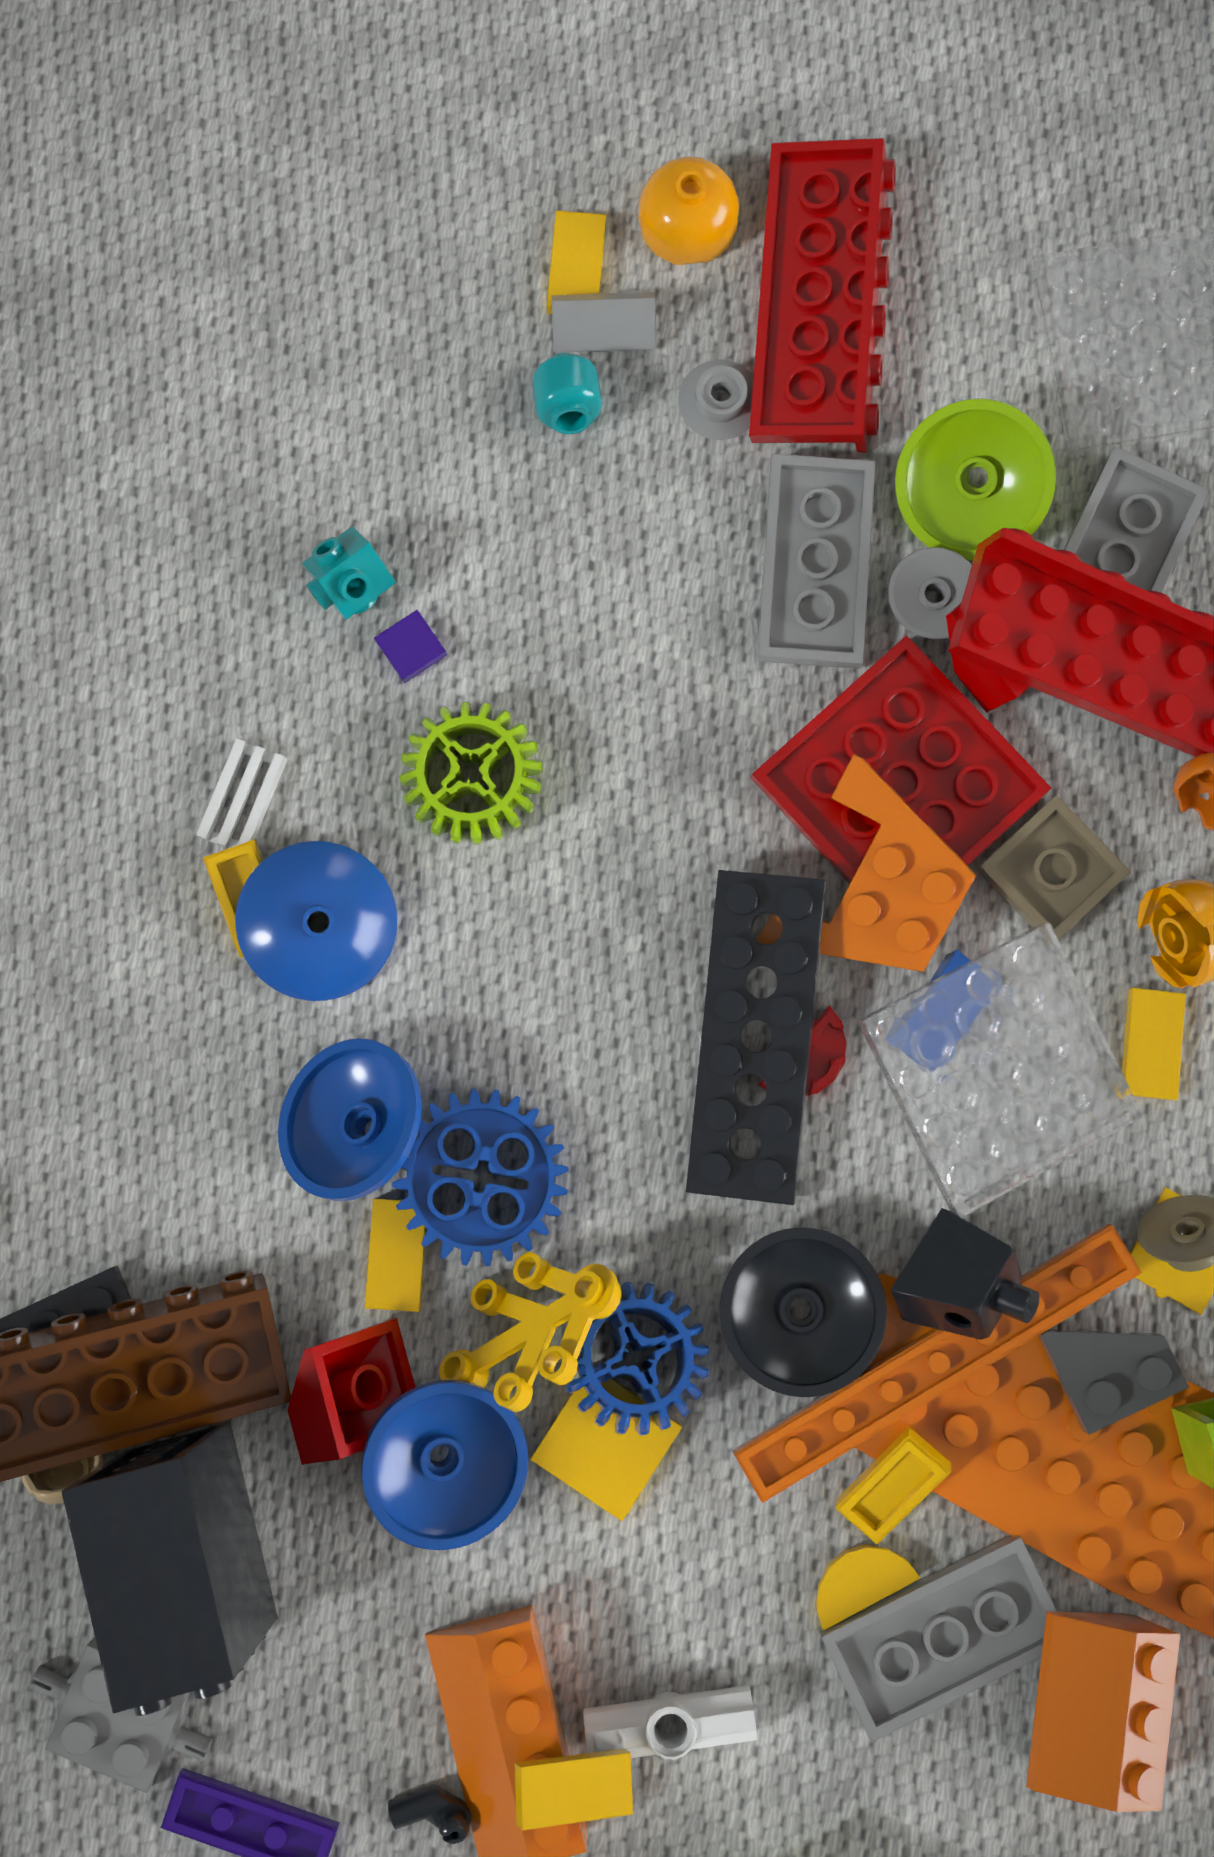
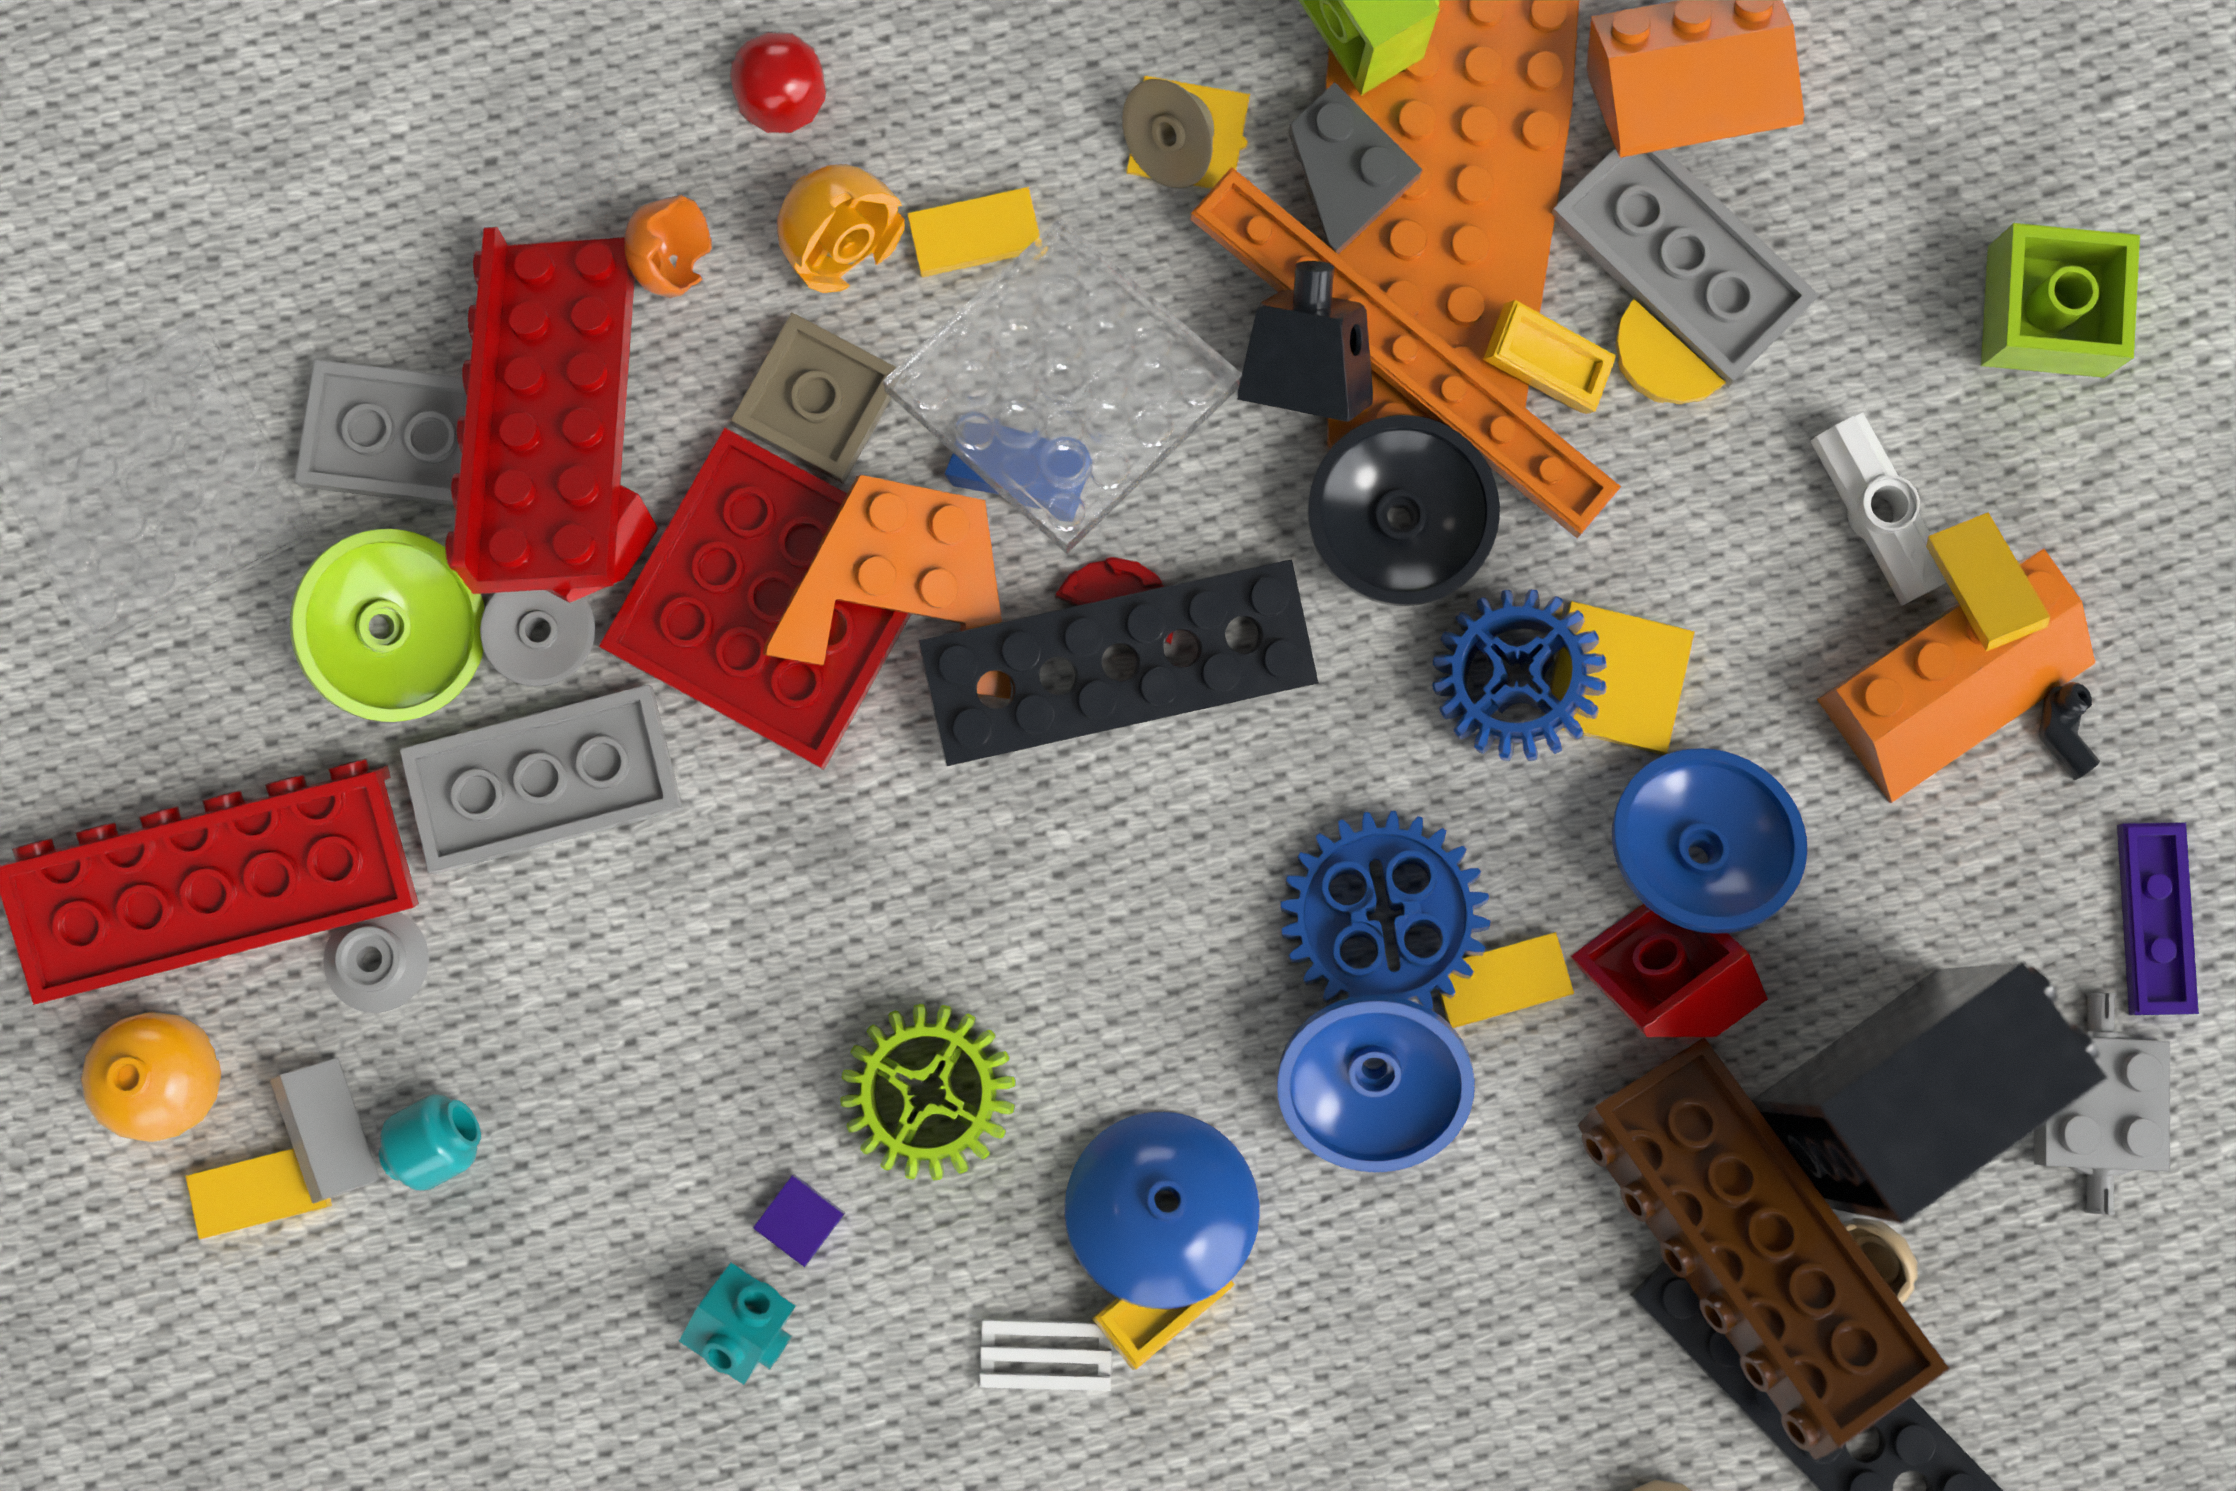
camera: 115 degrees left, 0 degrees up
(588, 1296) = (1528, 791): yellow plant -> none

